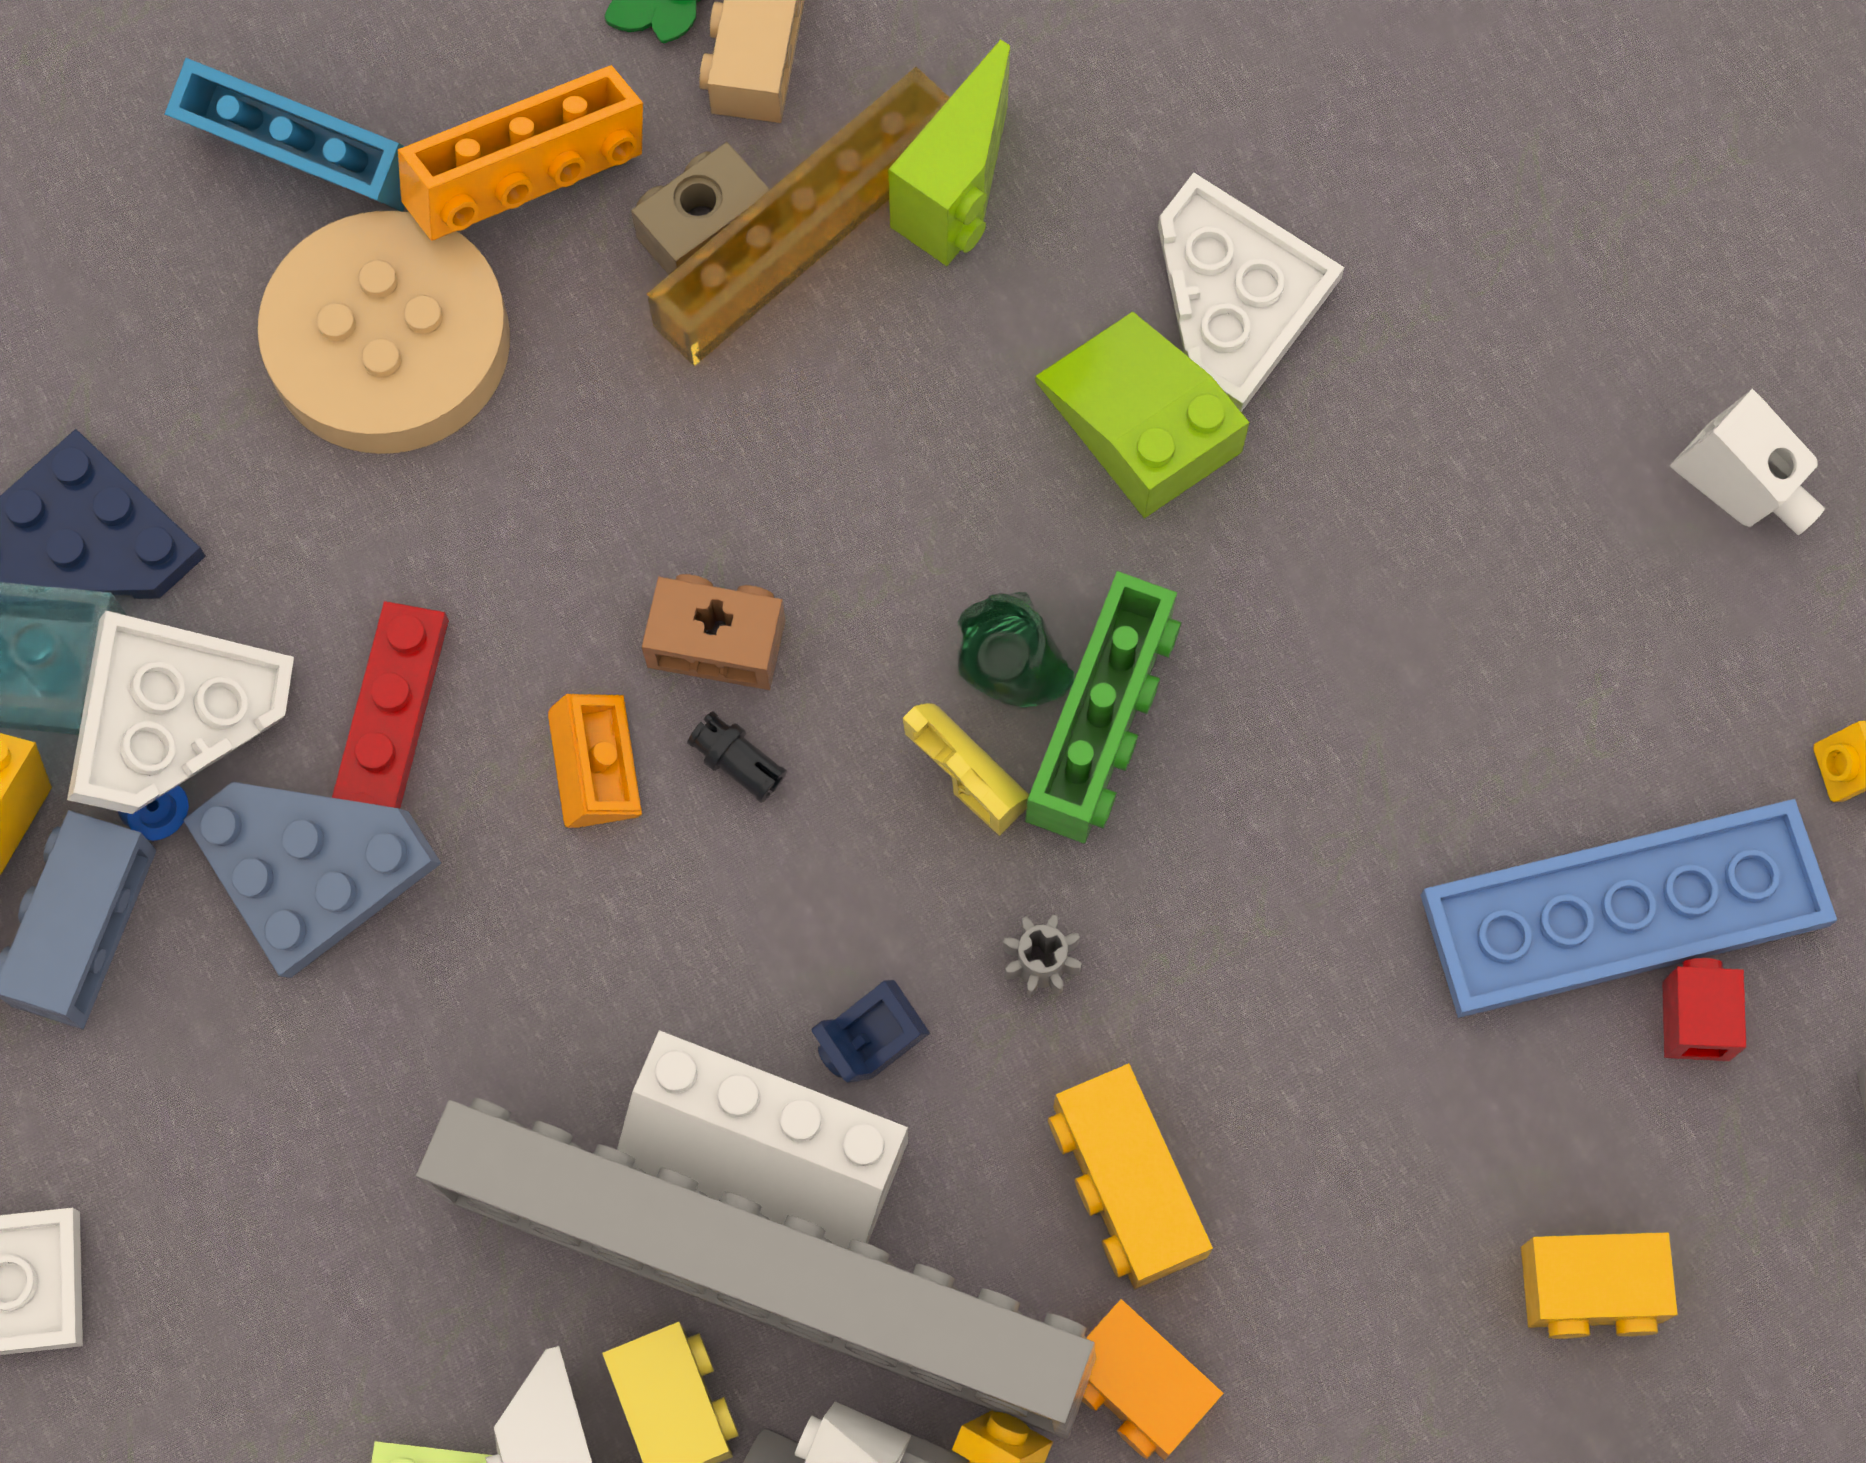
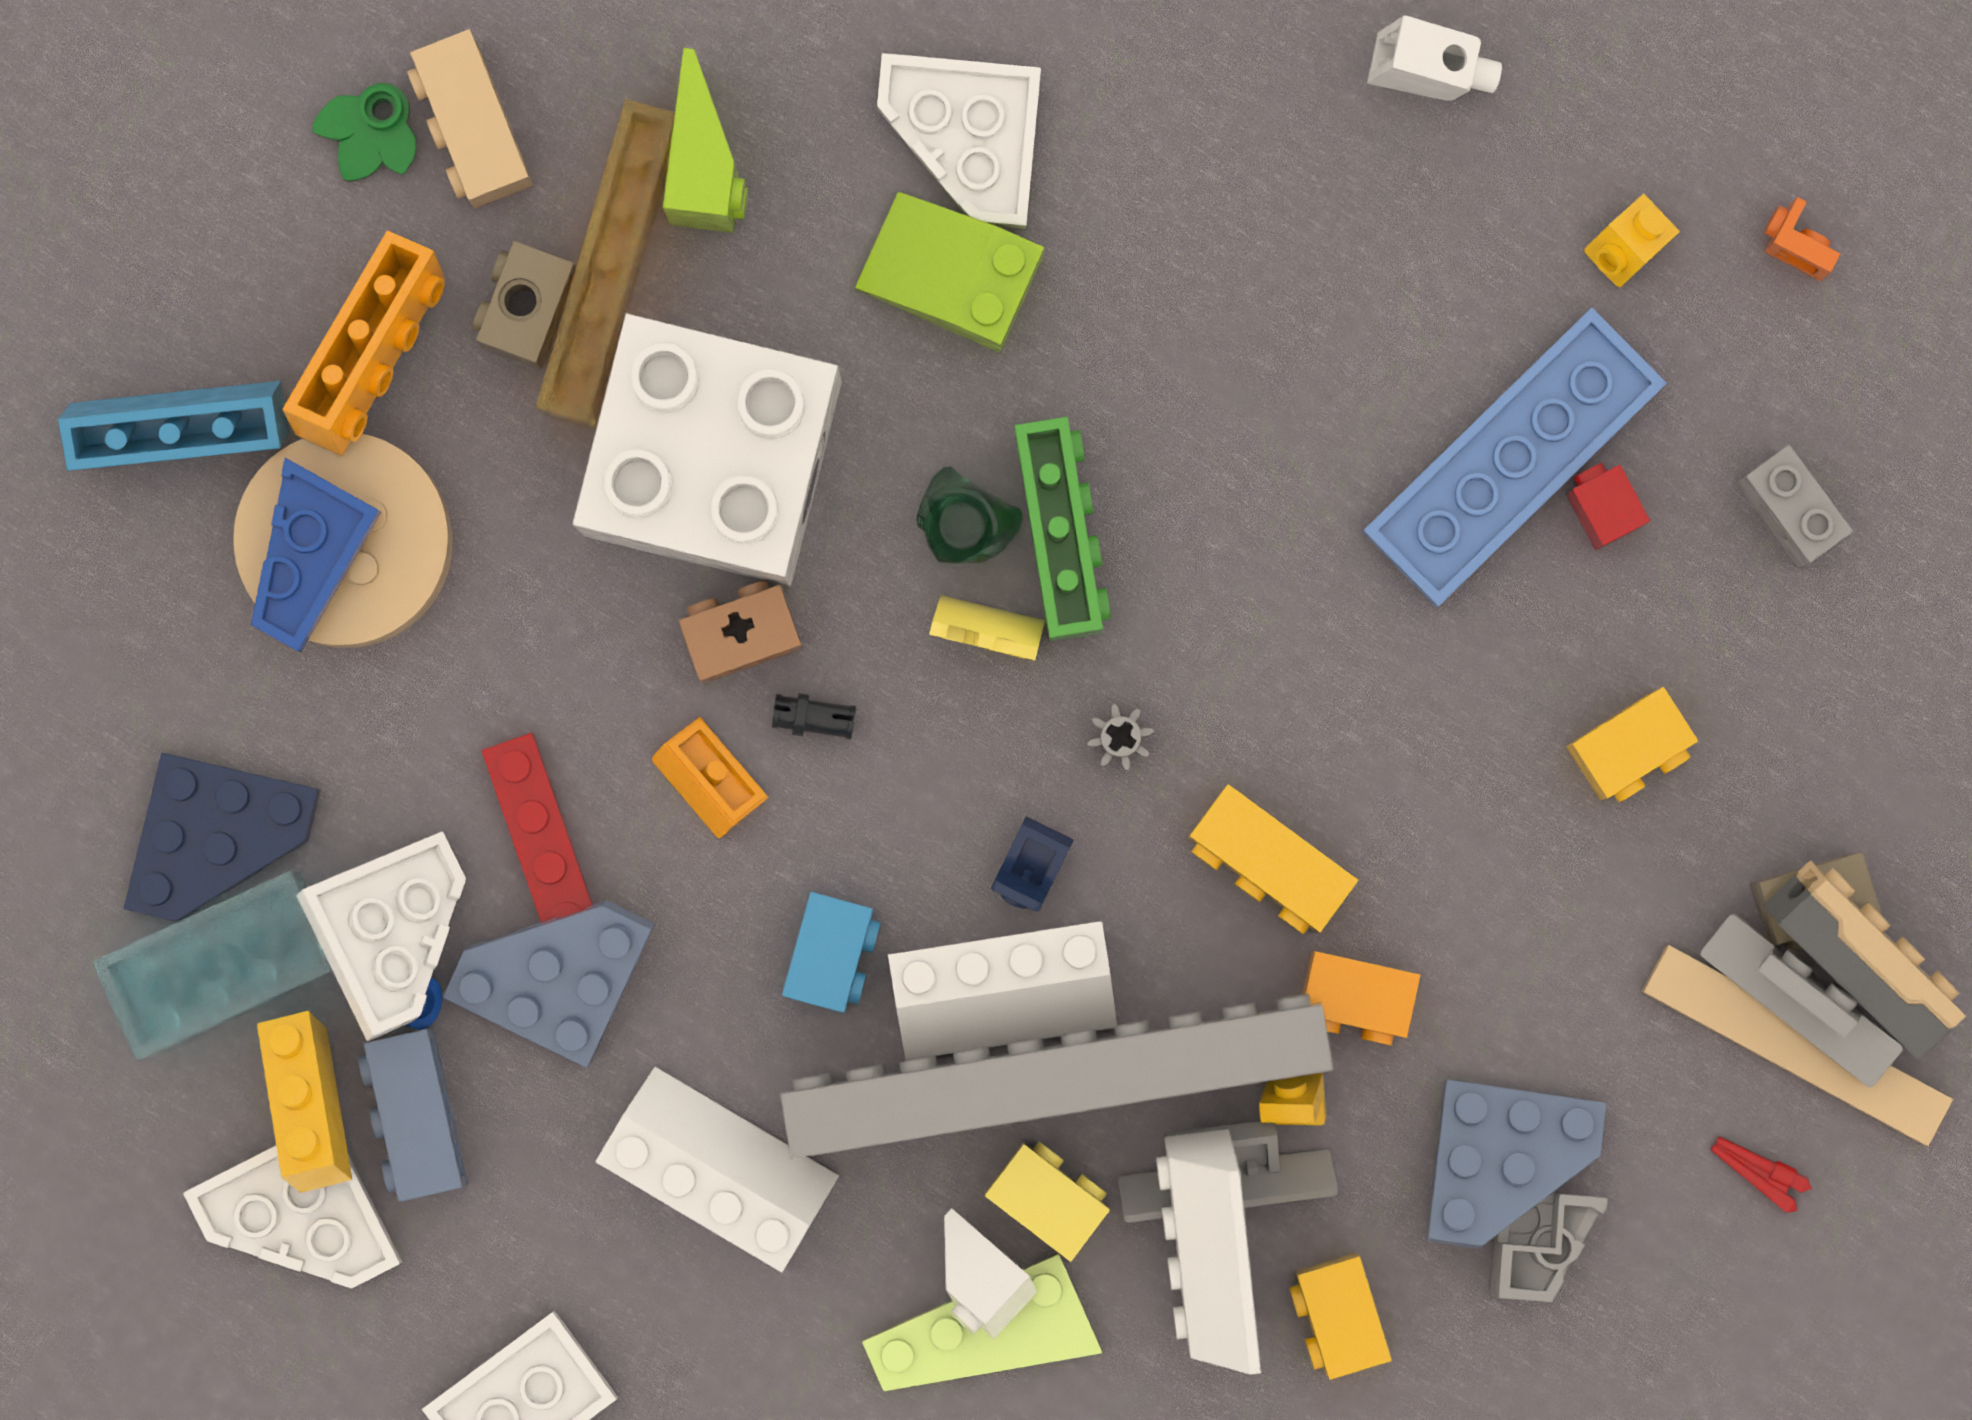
camera: 30 degrees left, 15 degrees up
(340, 307) = (308, 553): none -> blue wing
(341, 1161) = (717, 1169): none -> white slope
(603, 1002) = (829, 953): none -> dark azure brick
(791, 428) = (708, 450): none -> white brick

